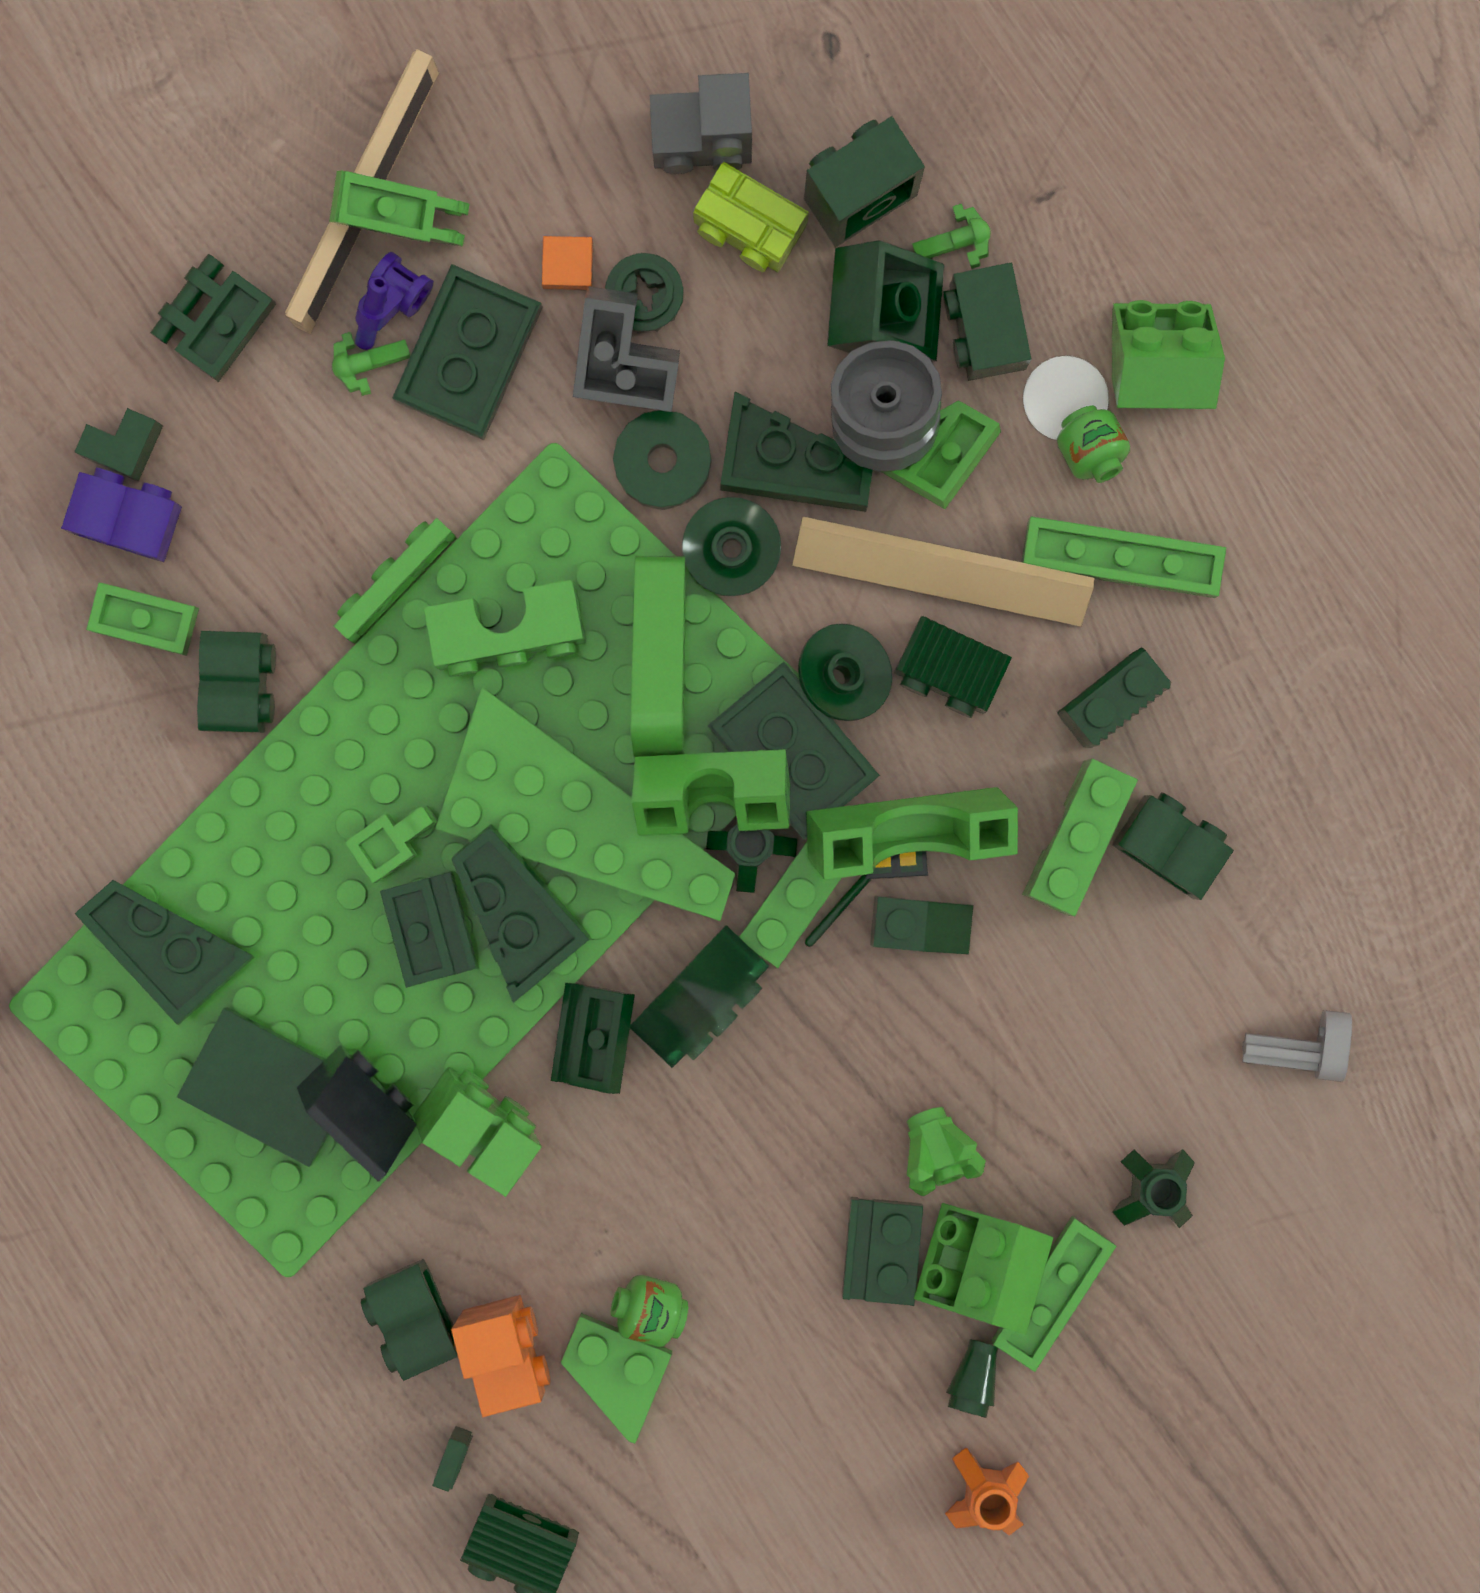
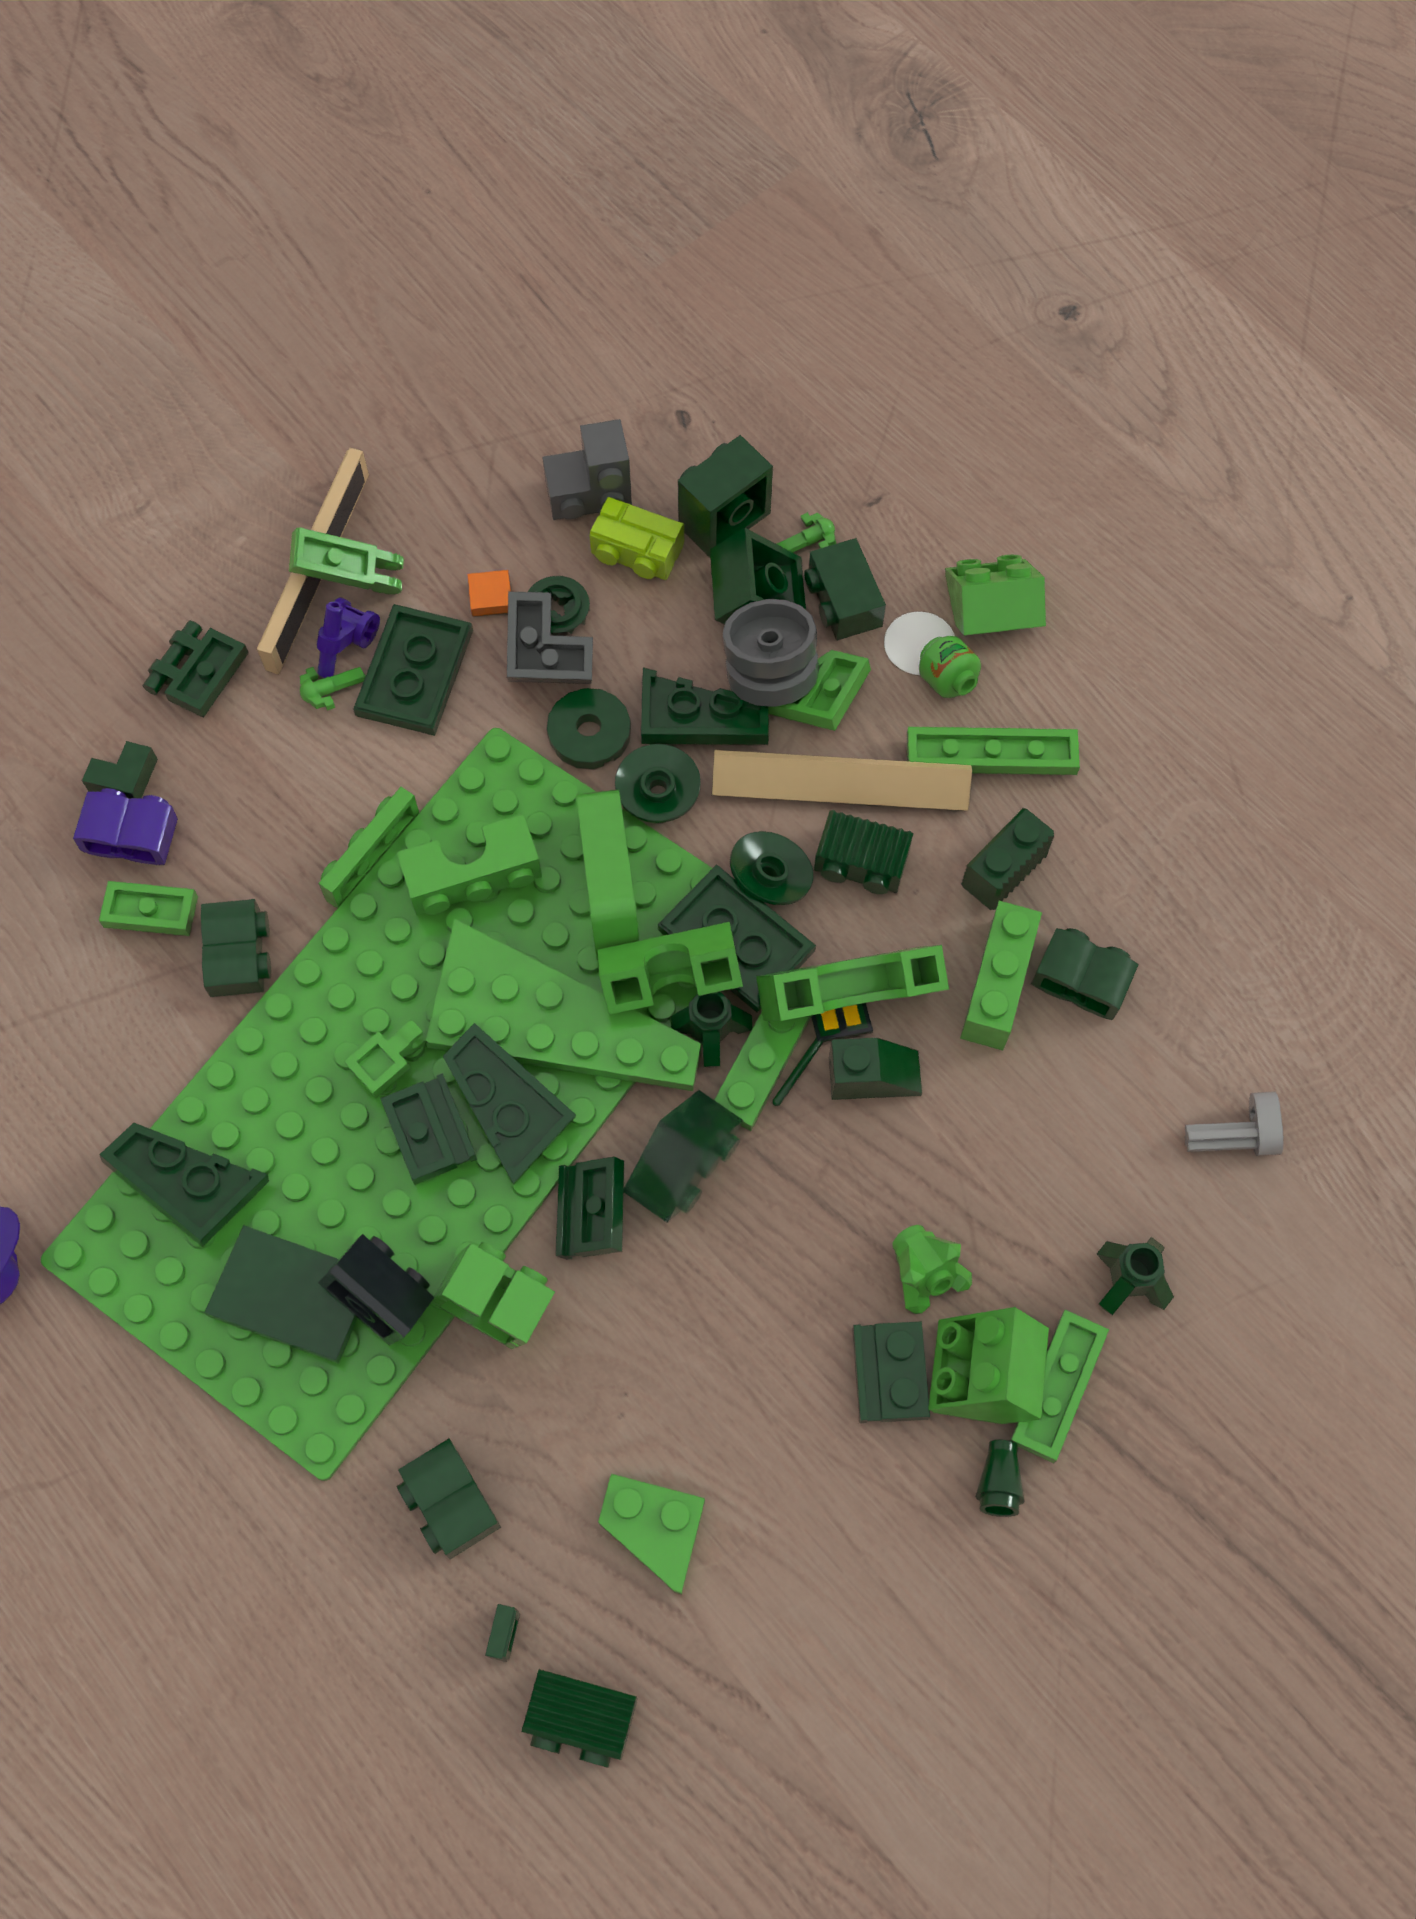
camera: 10 degrees left, 20 degrees down
(500, 1356) = (537, 1516): orange brick -> none
(649, 1311) = (678, 1455): bright green head -> none
(988, 1496) = (1035, 1592): orange rock -> none

